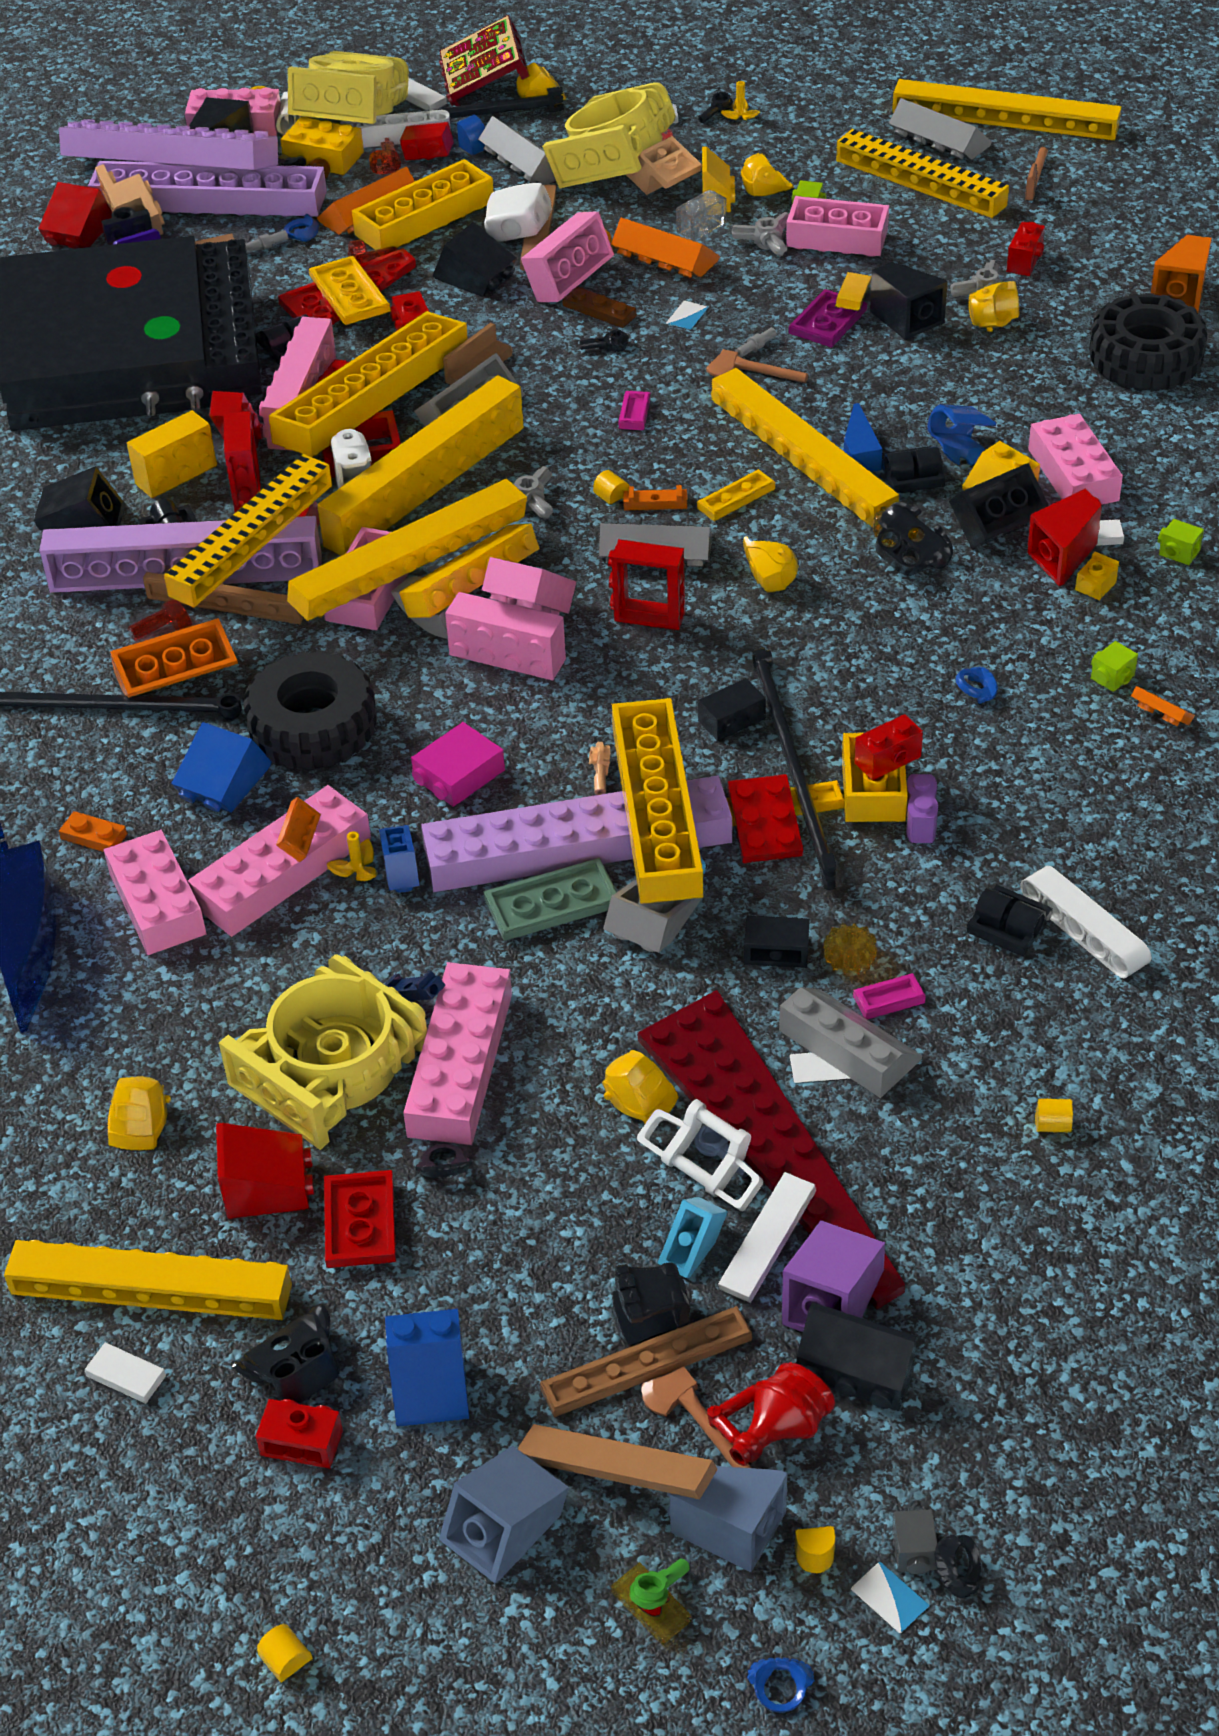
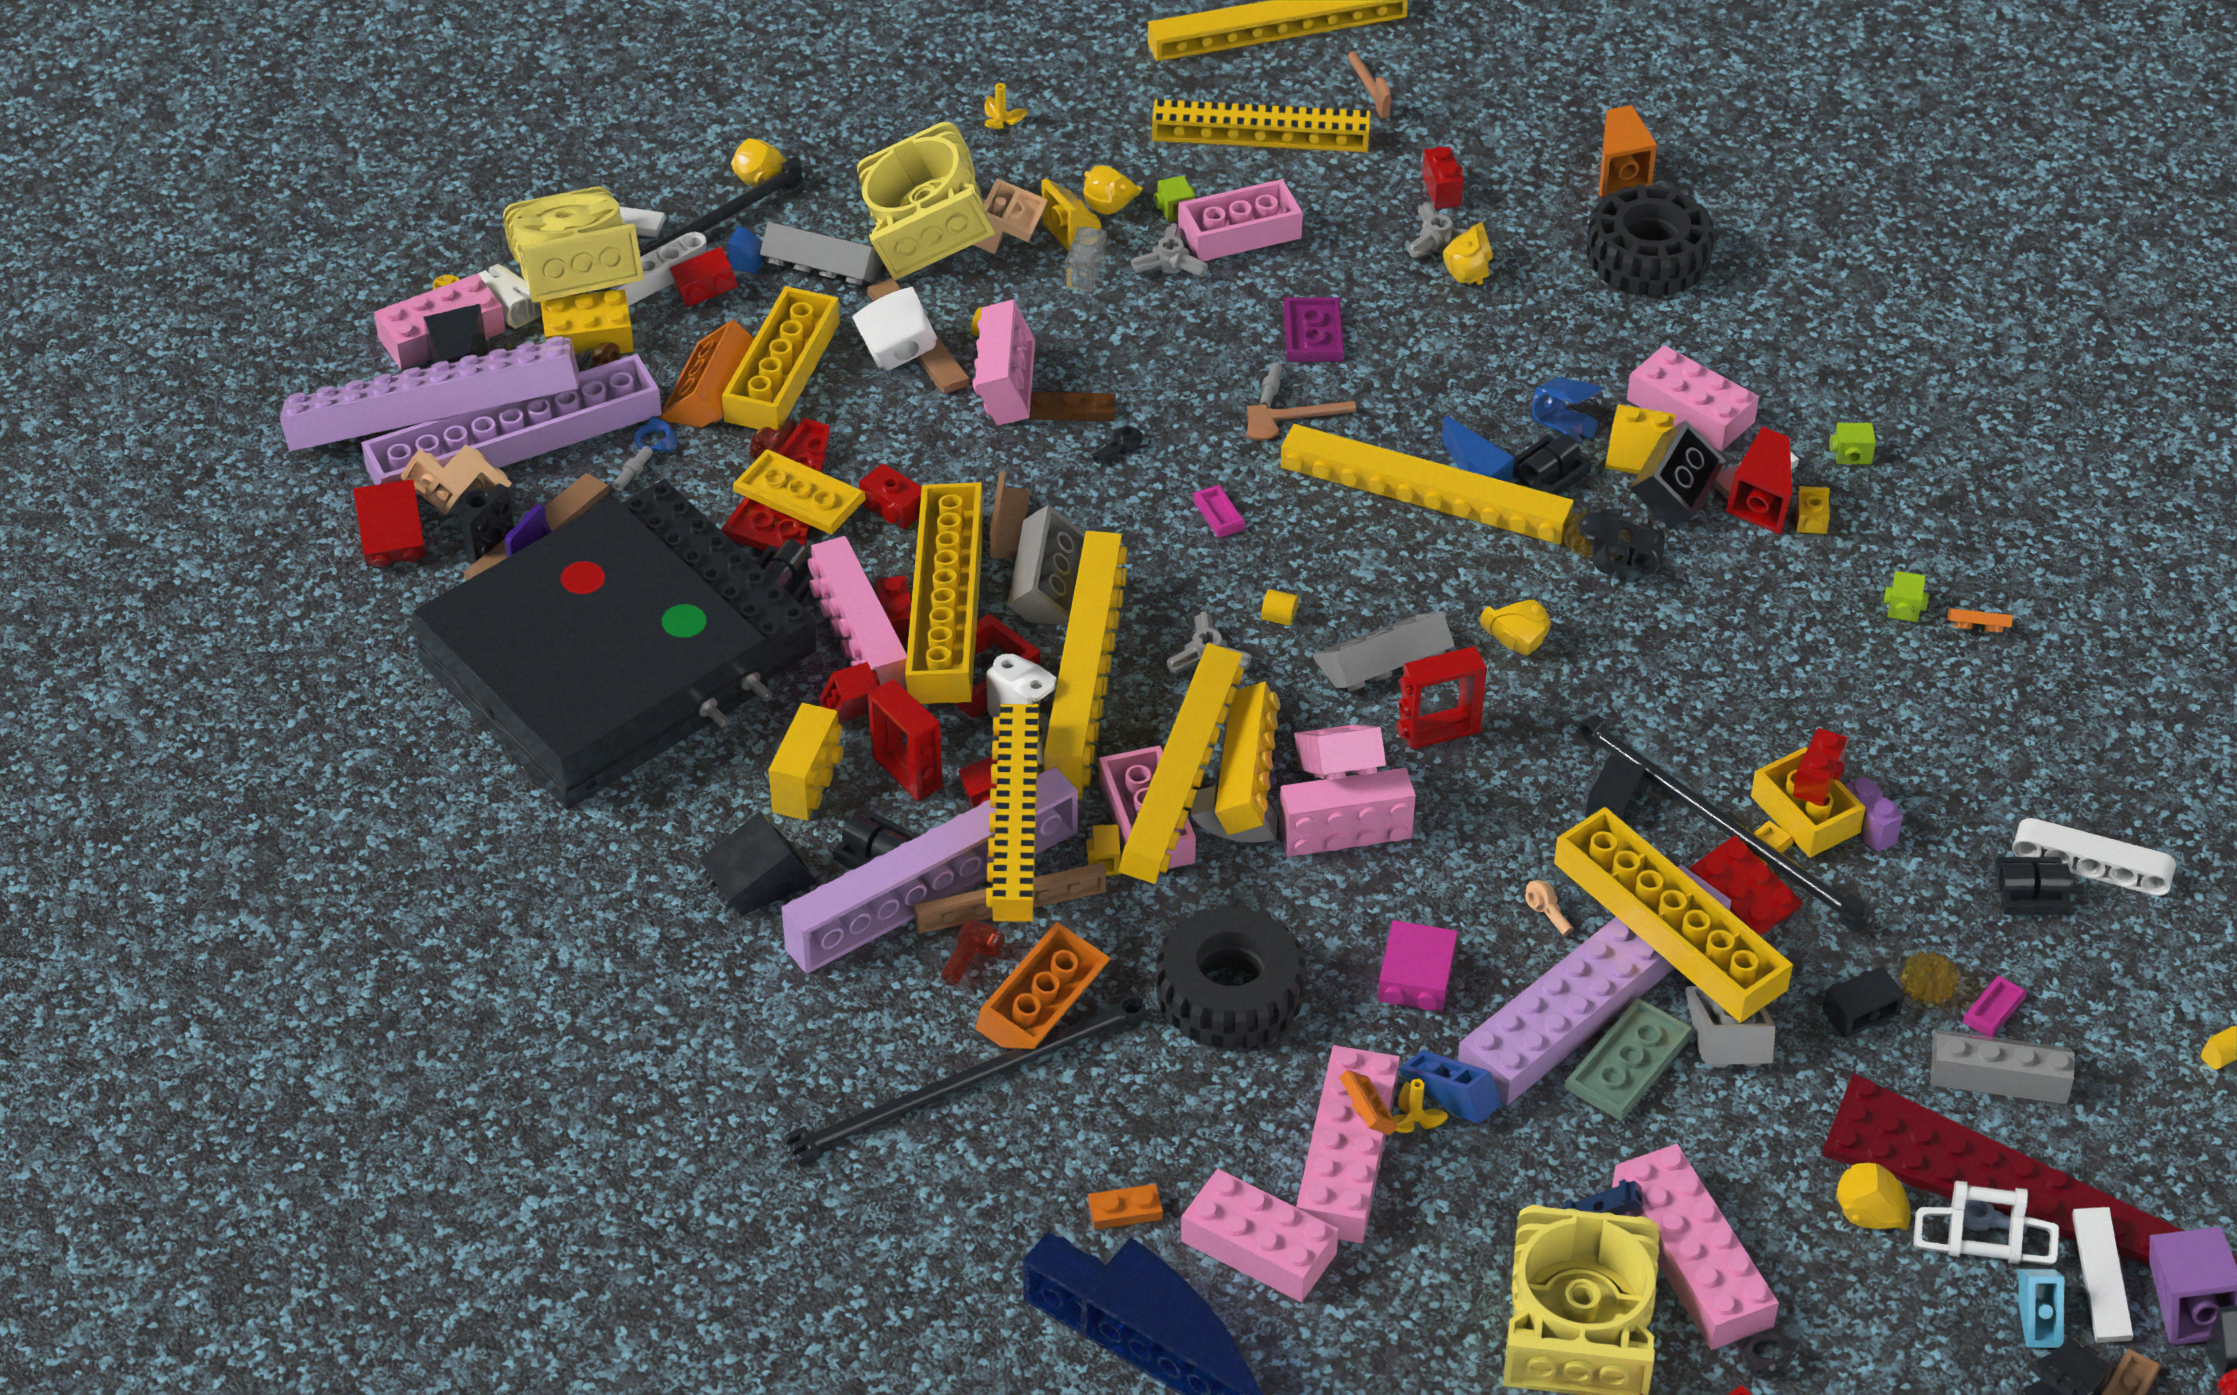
camera: 35 degrees left, 0 degrees up
(220, 768) = (1199, 1080): blue slope -> none
(389, 159) = (673, 316): clear red piece -> none
(474, 262) = (902, 406): black slope -> none
(482, 59) = (680, 155): panel -> none
(655, 499) = (1332, 601): orange piece -> none
(663, 248) = (1083, 313): orange slope -> none
(687, 315) = (1167, 380): sticker -> none
(719, 102) = (973, 113): black plate -> none
(736, 495) = (1405, 564): yellow tile -> none
(811, 1068) = (1989, 1106): white sticker -> none
(853, 291) = (1319, 290): yellow tile -> none
(907, 299) = (1386, 280): black slope -> none
(938, 130) = (1234, 68): light grey slope -> none
(979, 675) = (1805, 658): blue piece -> none

